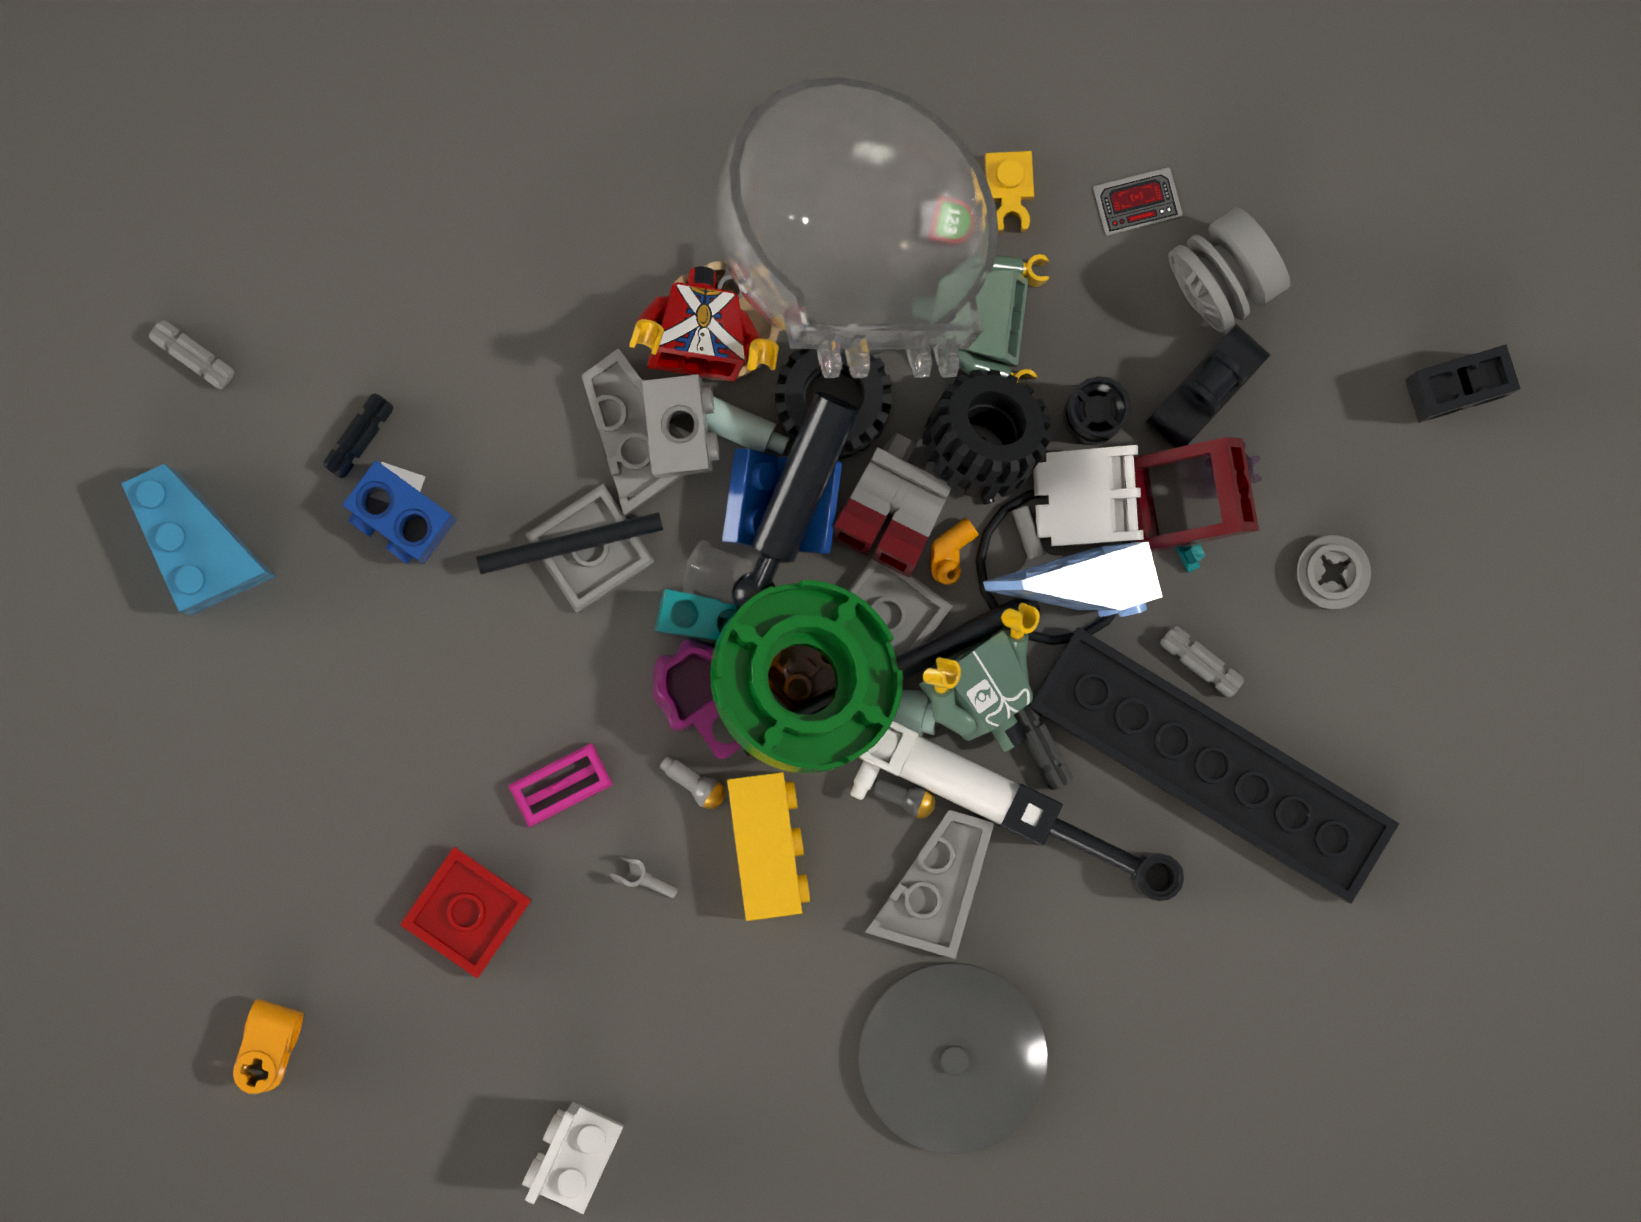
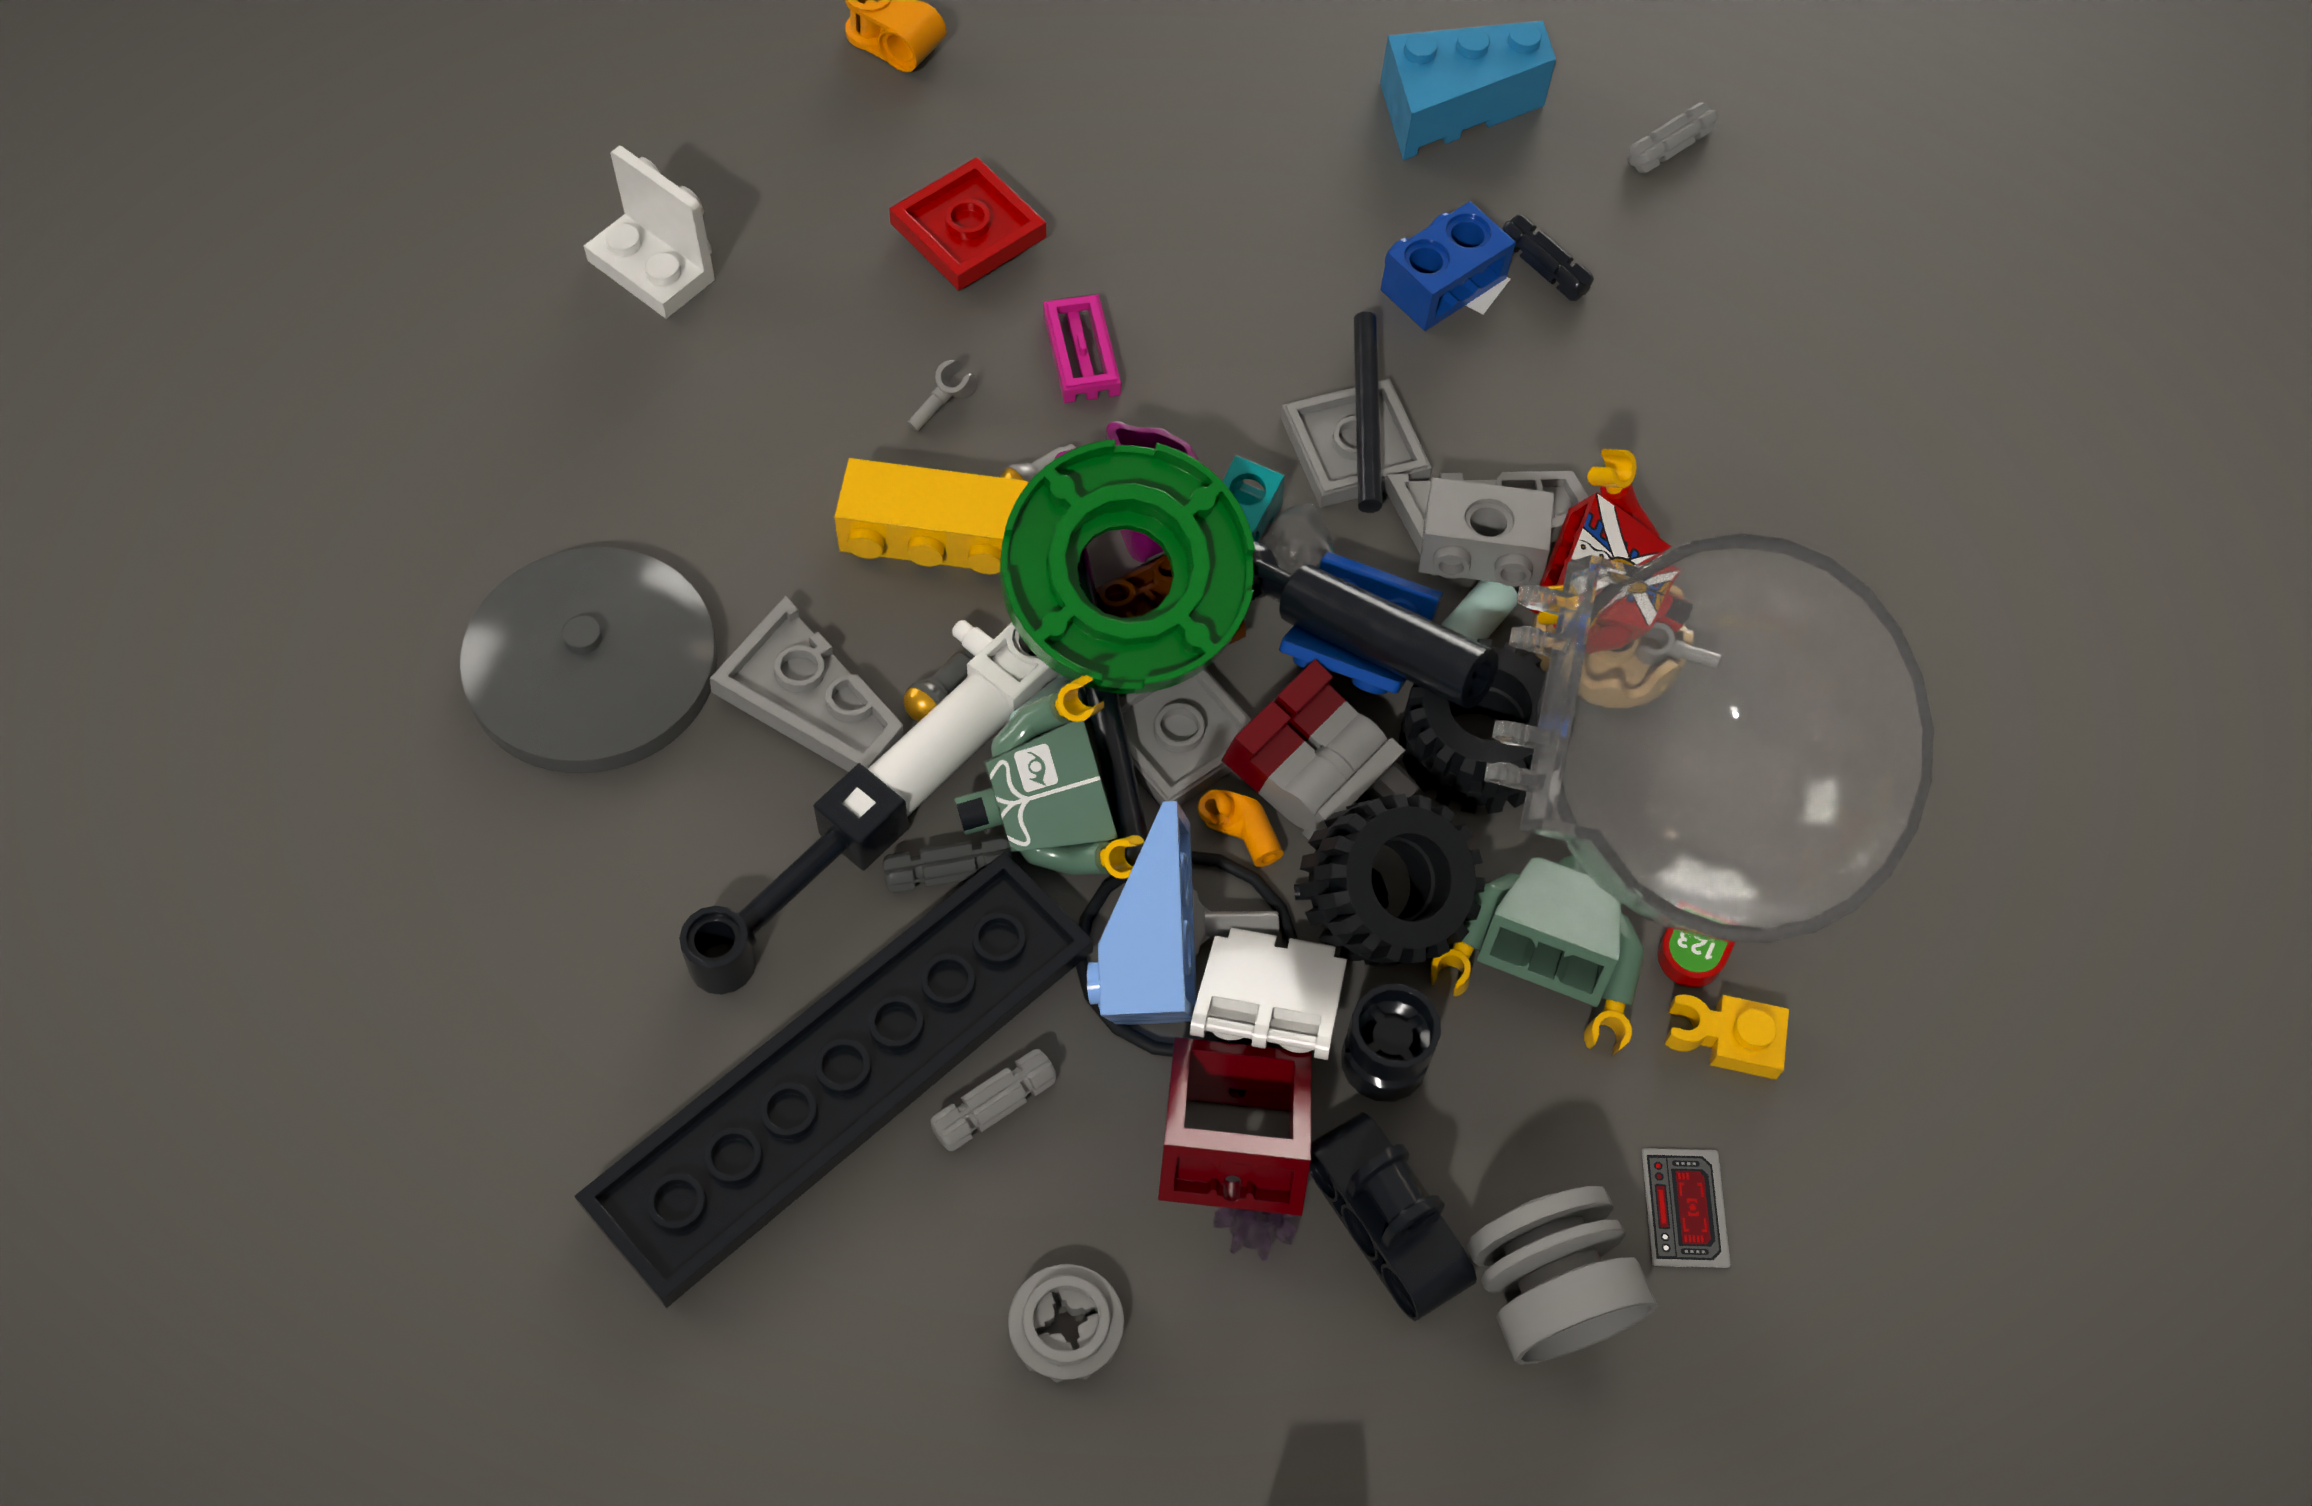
camera: 110 degrees right, 25 degrees down
(1191, 556) = (1146, 1129): teal piece -> none

